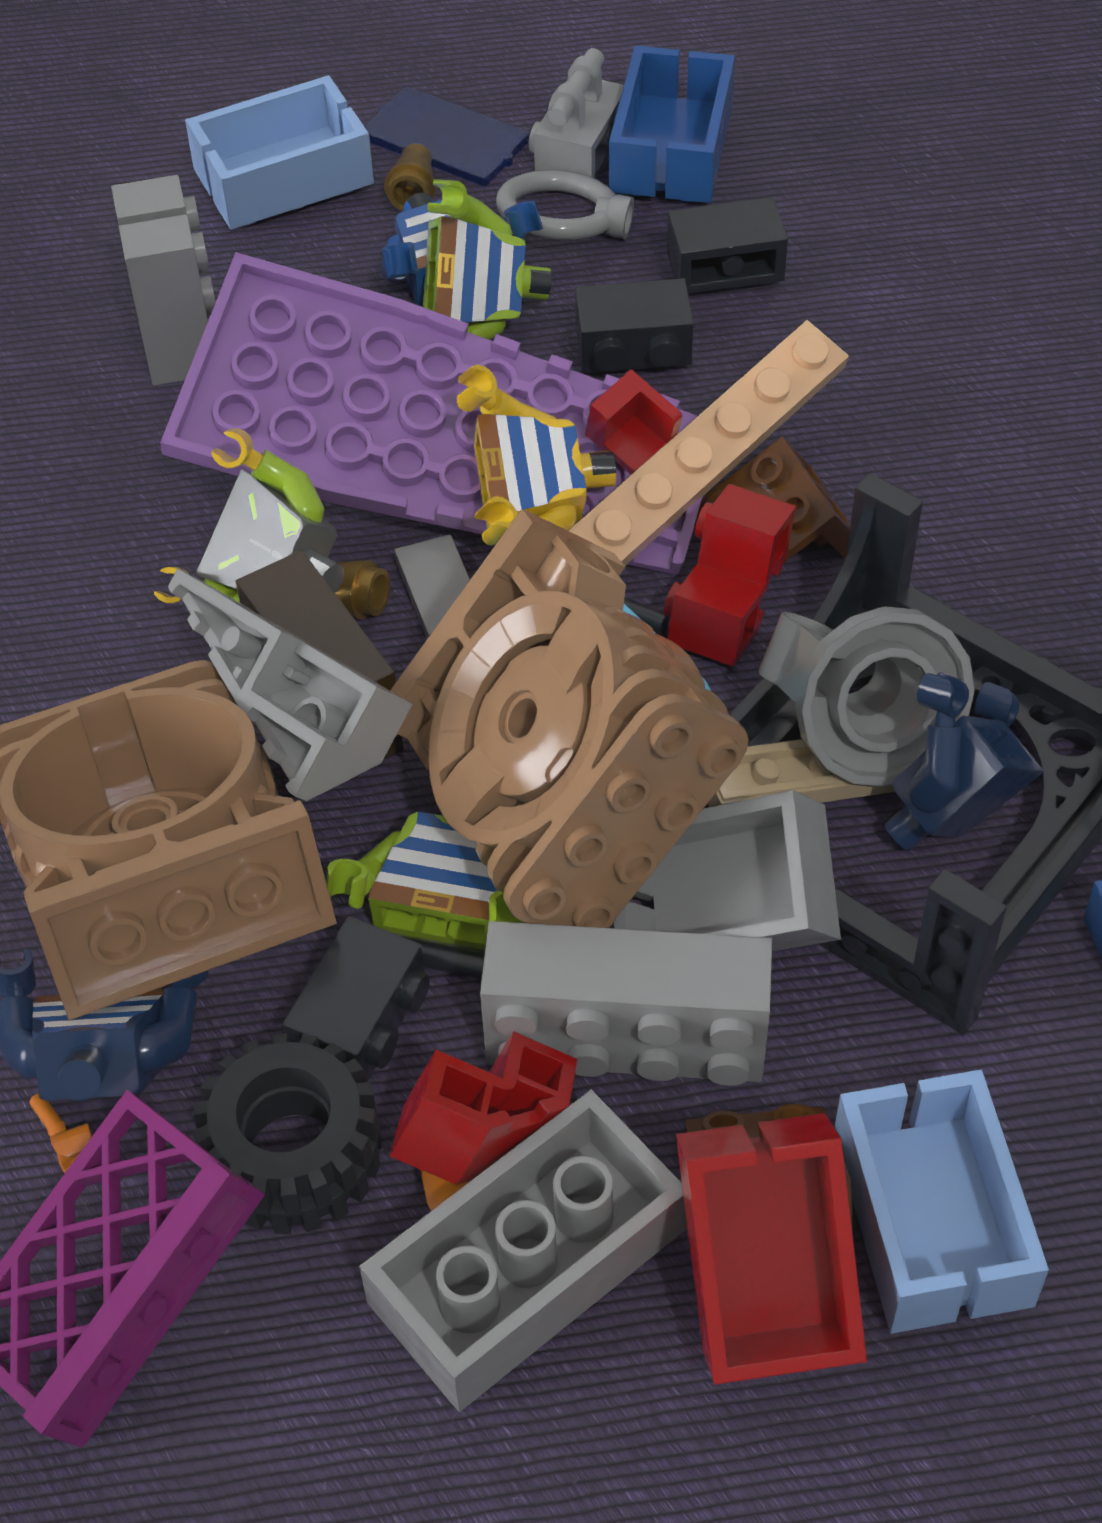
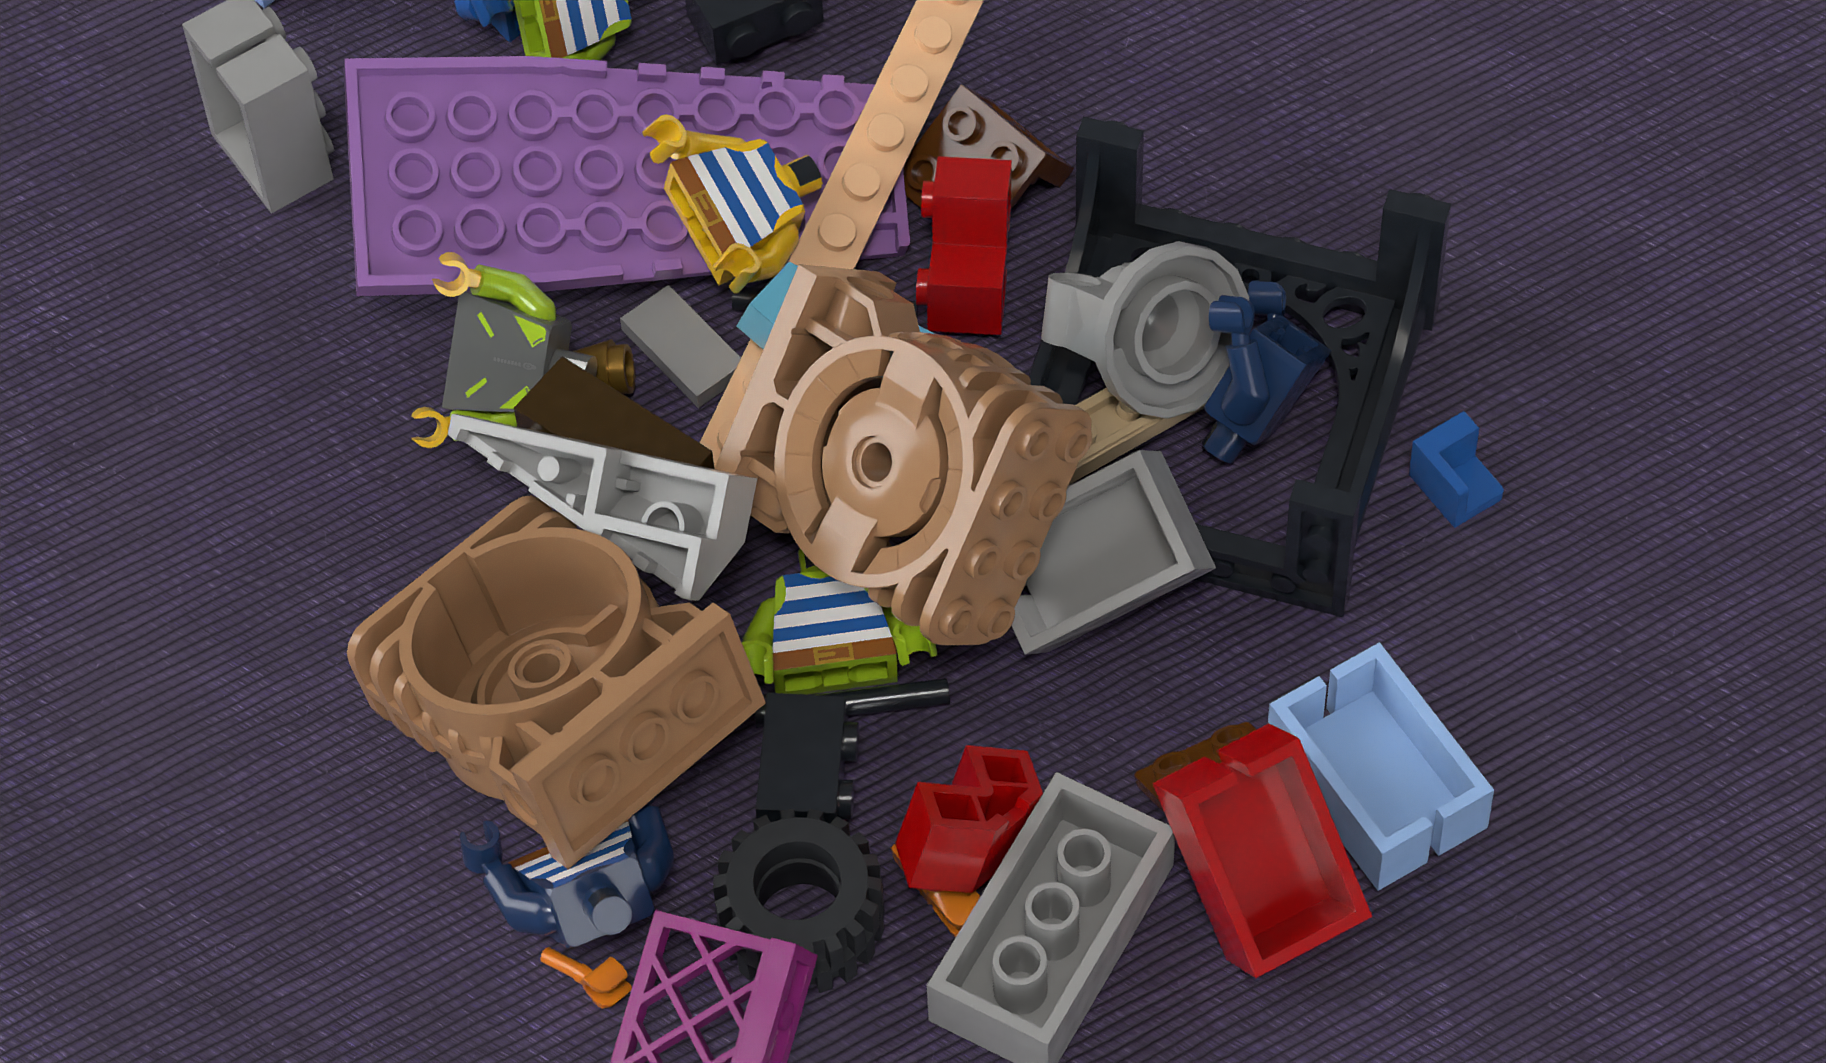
camera: 20 degrees left, 5 degrees up
(631, 999) = (1052, 683): light grey brick -> none
(632, 421) = (815, 118): red panel -> none

